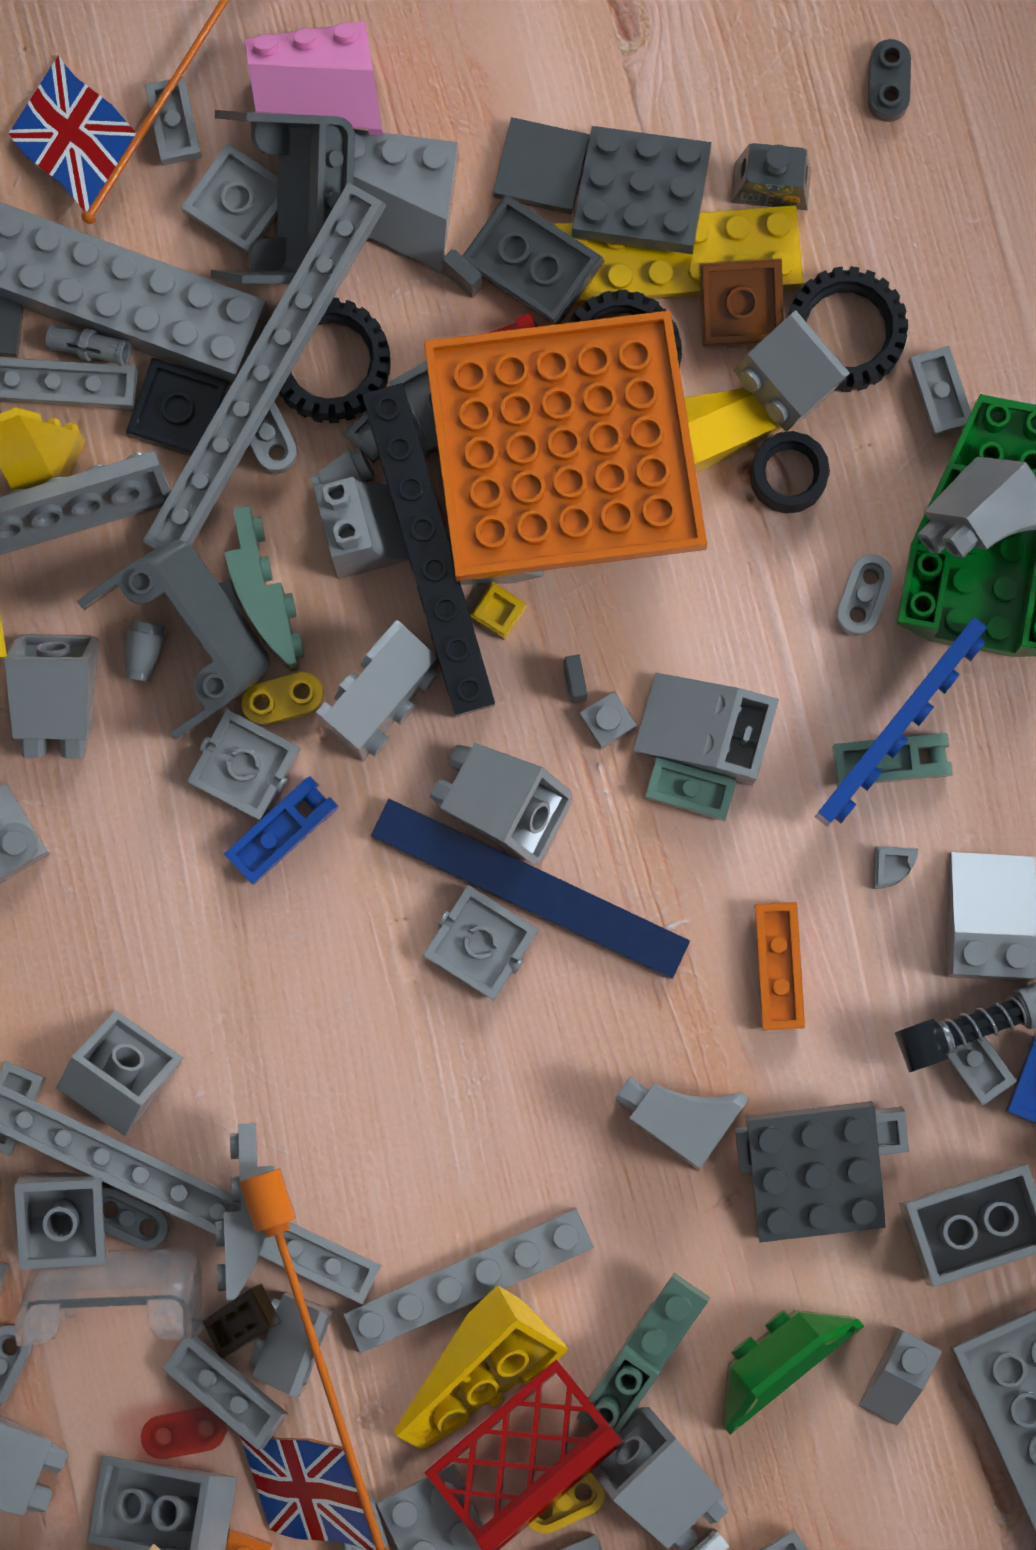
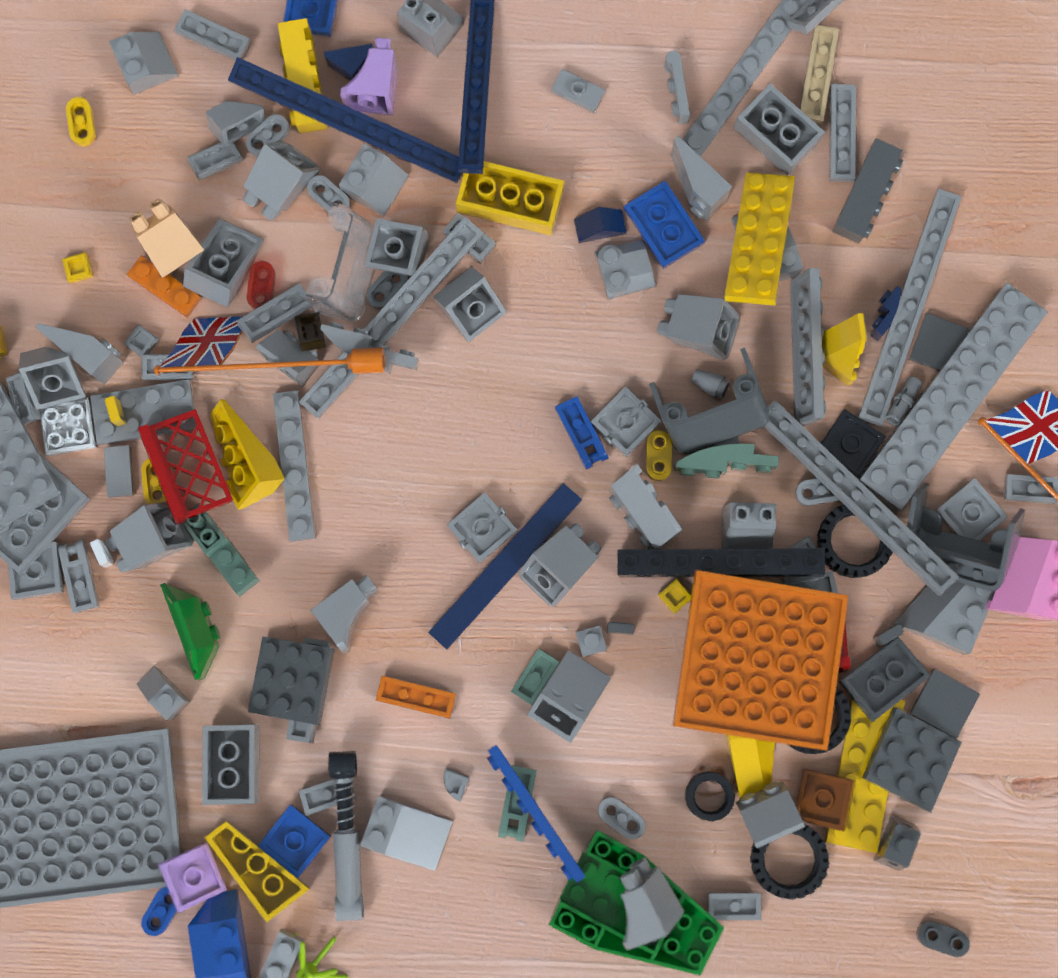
camera: 110 degrees right, 0 degrees up
(346, 465) = (785, 532): light grey cone -> none

